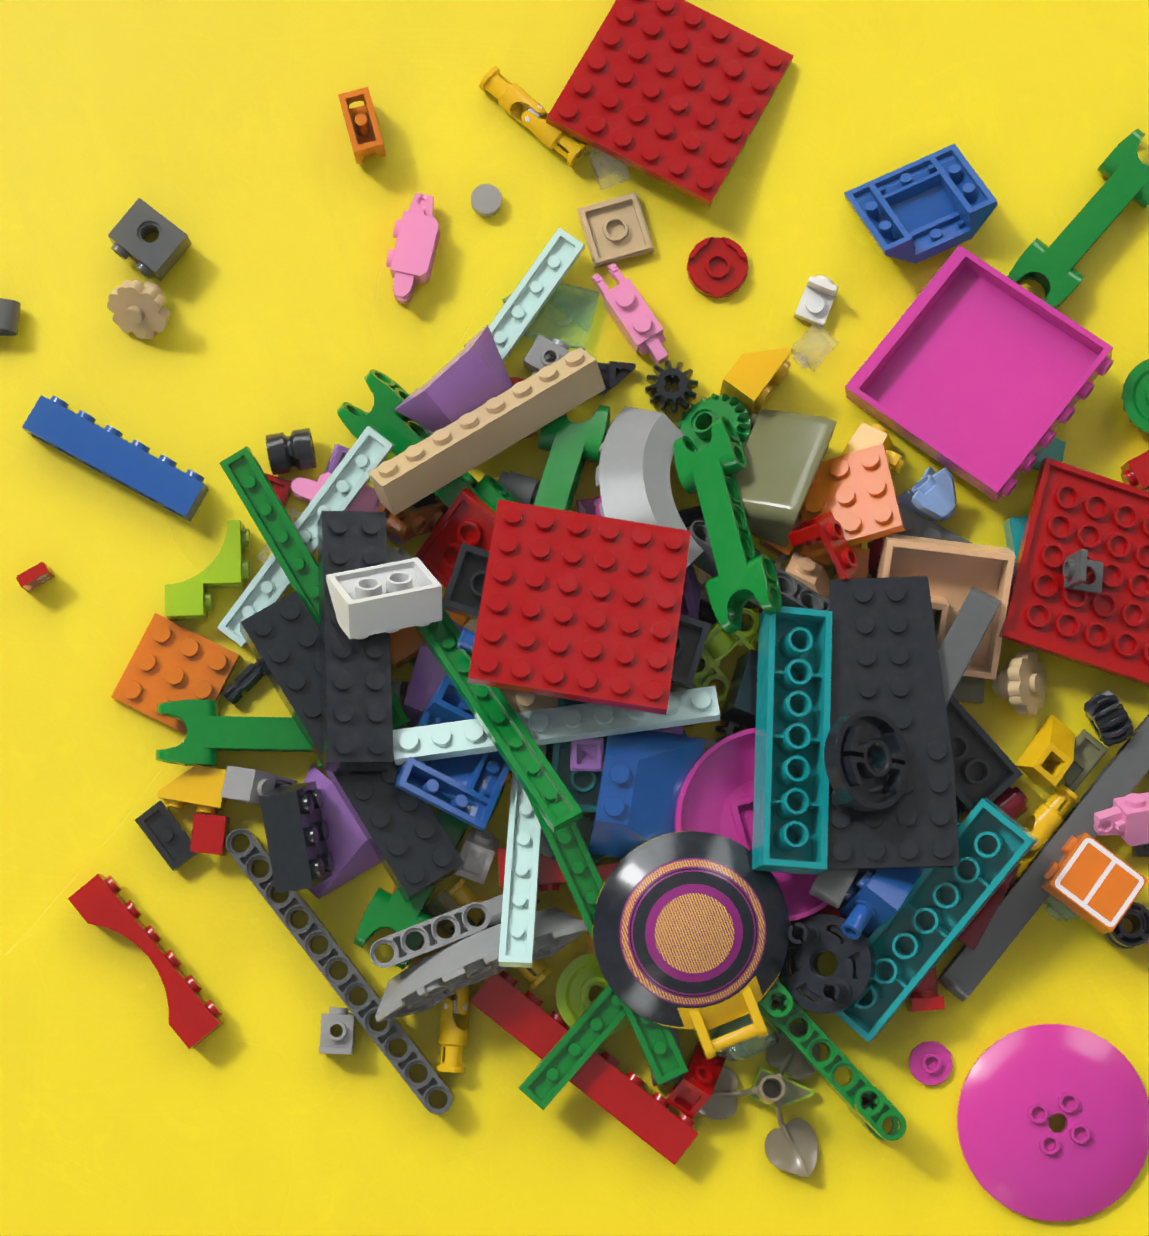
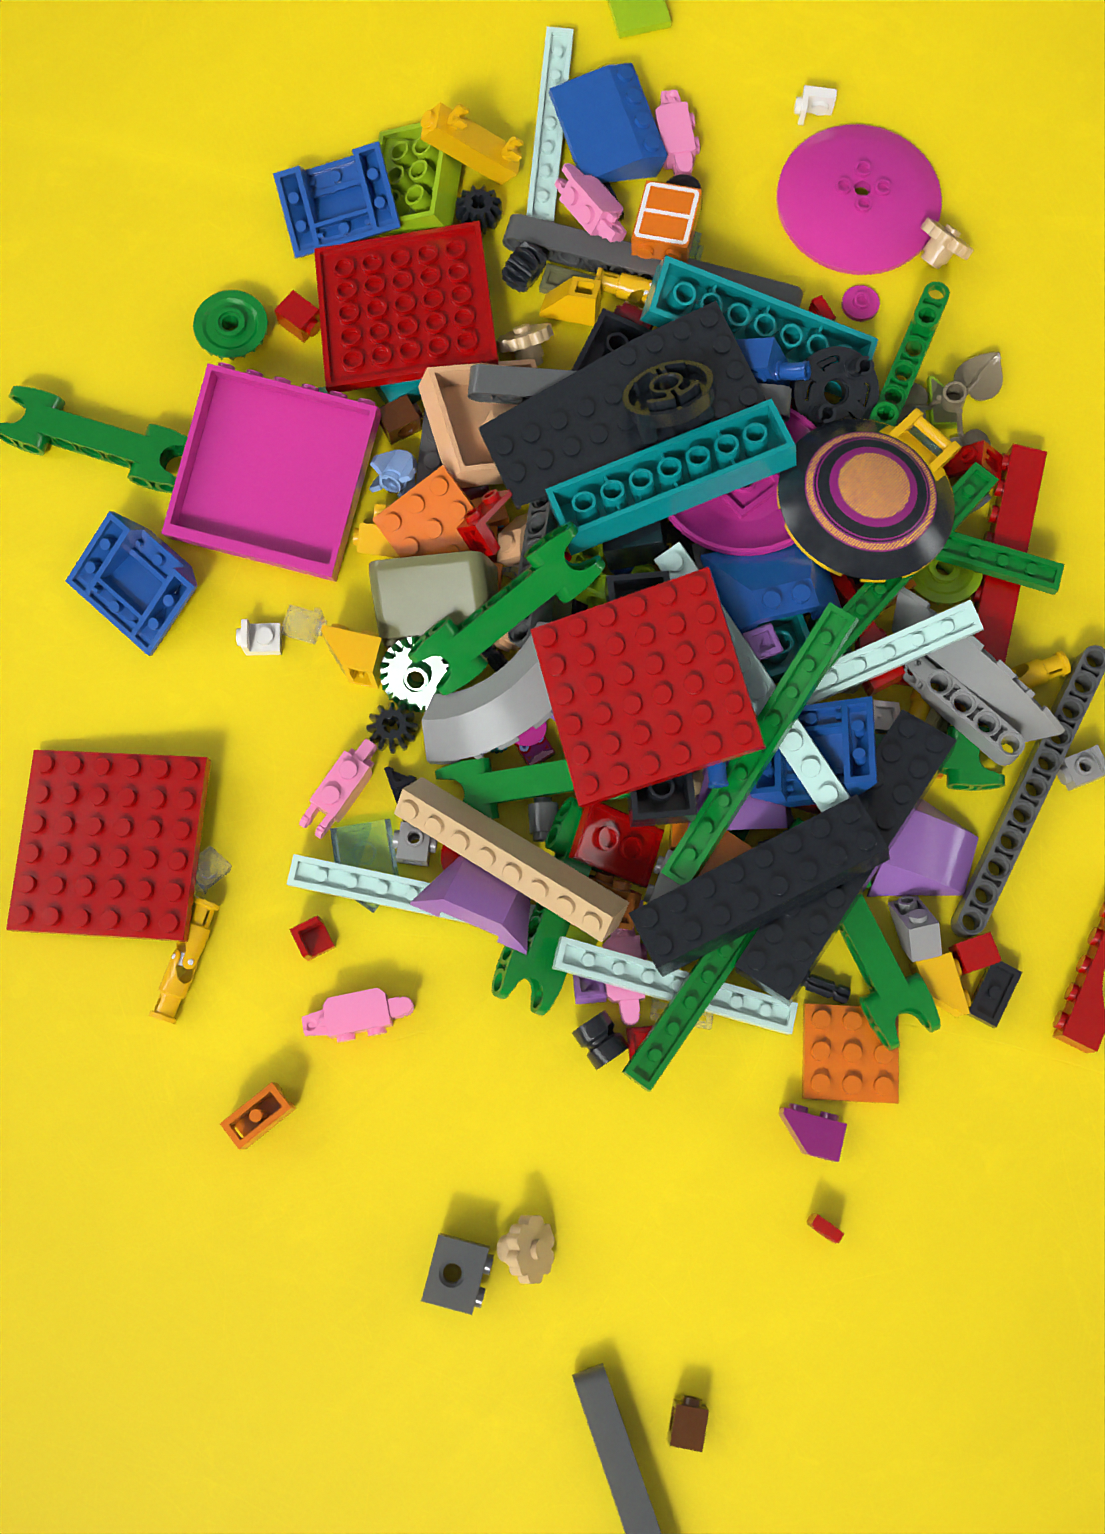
camera: 115 degrees left, 5 degrees down
(115, 457) = (679, 1206): blue brick -> none
(120, 605) = (813, 1134): none -> magenta slope
(228, 570) = (777, 1070): lime arch -> none
(296, 836) = (949, 865): black brick -> none
(385, 598) = (714, 868): white slope -> none
(486, 200) = (283, 969): light grey tile -> none
(501, 234) = (312, 938): none -> red panel
(615, 230) = (264, 840): tan tile -> none
(717, 267) = (263, 736): red tile -> none
(958, 1181) = (943, 244): none -> tan plant
(990, 523) = (400, 419): none -> reddish brown brick
(1075, 572) = (416, 321): dark grey bracket -> none

